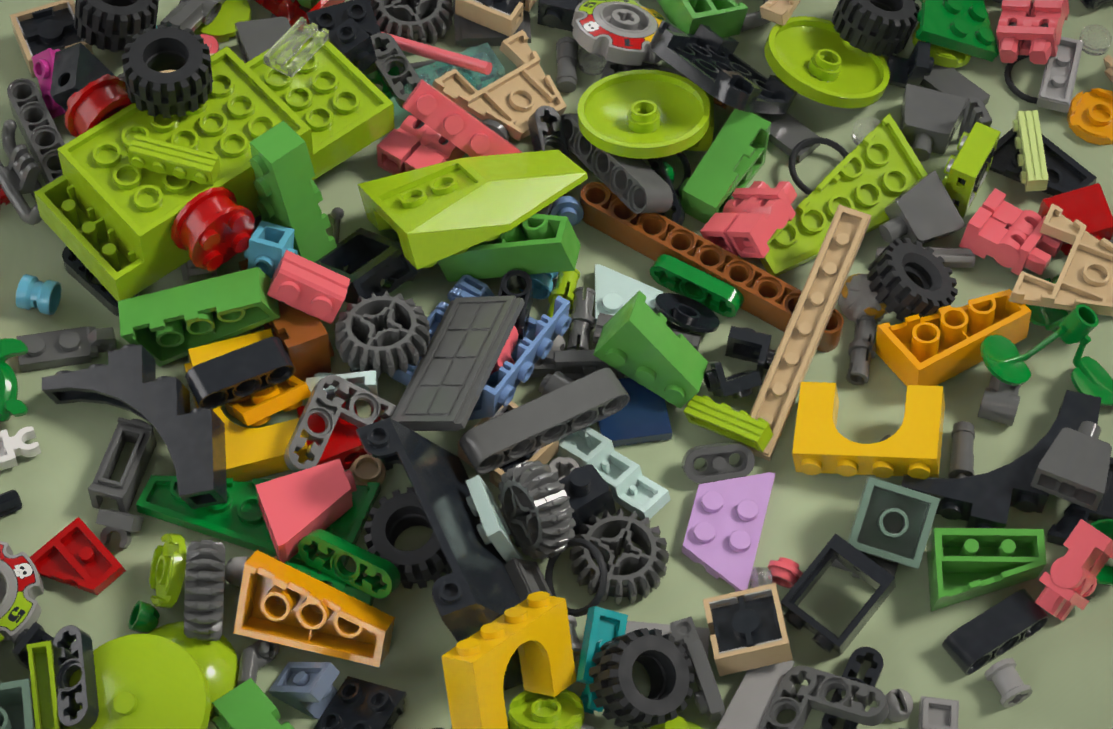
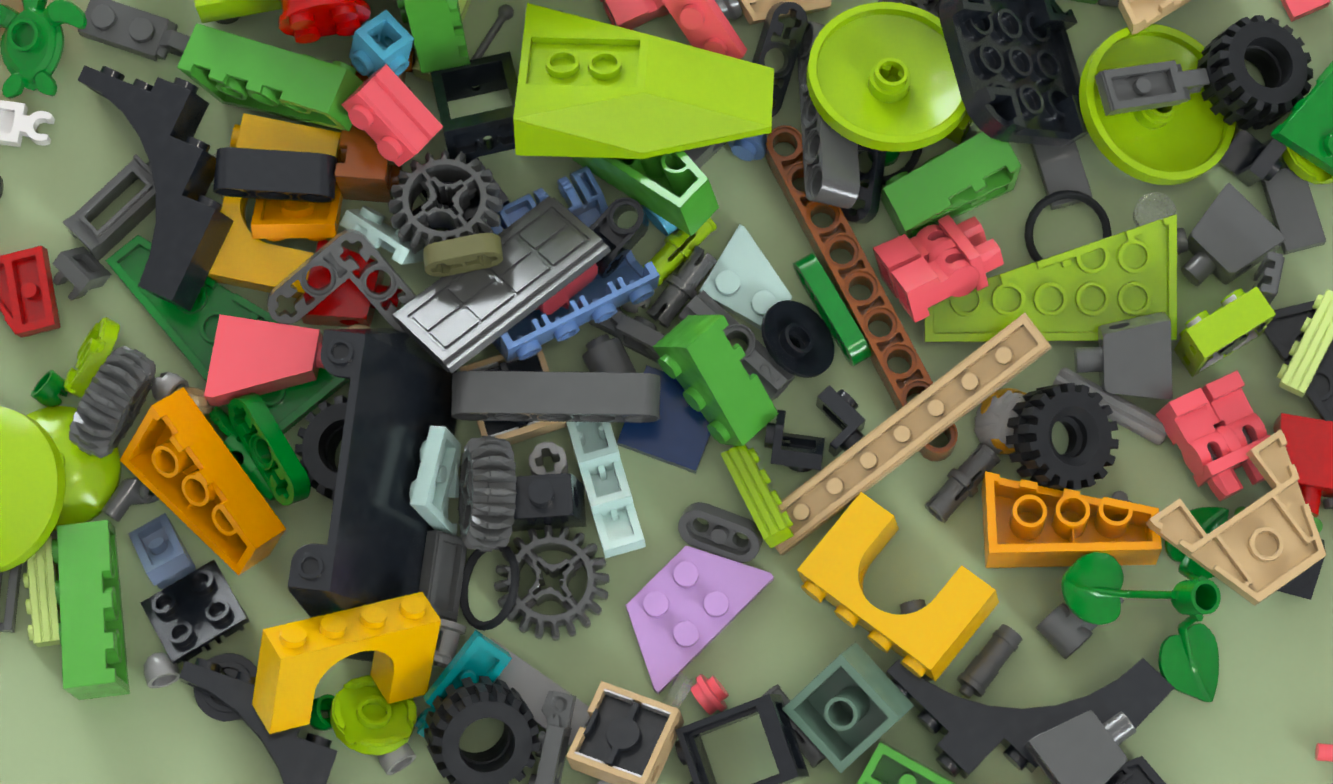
camera: 35 degrees right, 20 degrees up
(418, 353) = (463, 254): none -> olive beam
(817, 45) = (1148, 86): none -> dark grey hinge

